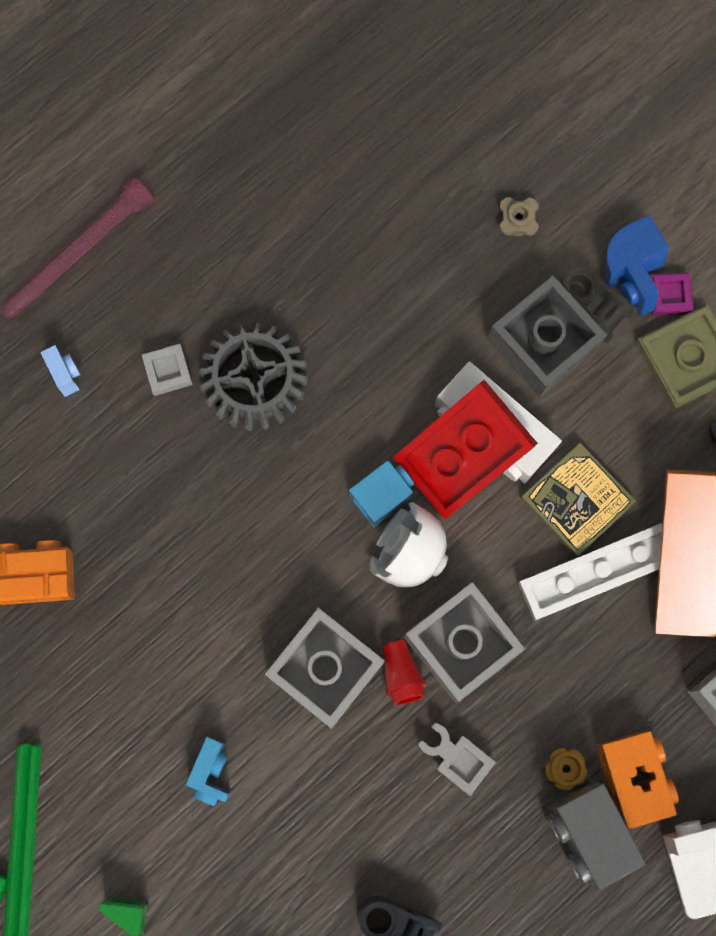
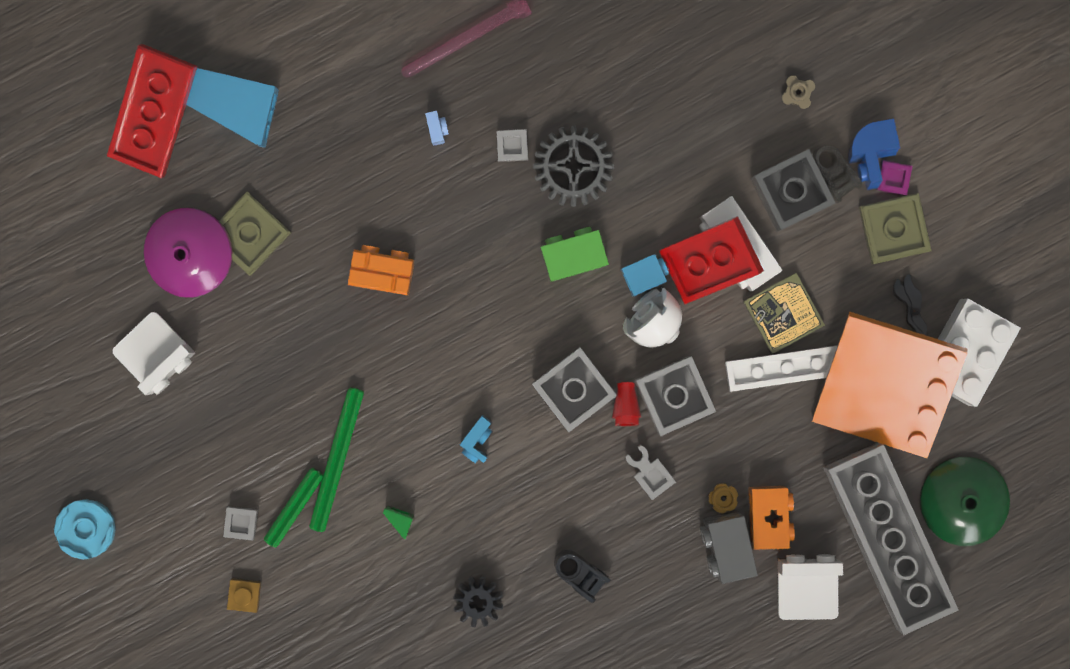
camera: 20 degrees right, 10 degrees up
(282, 489) = (574, 254): none -> bright green brick

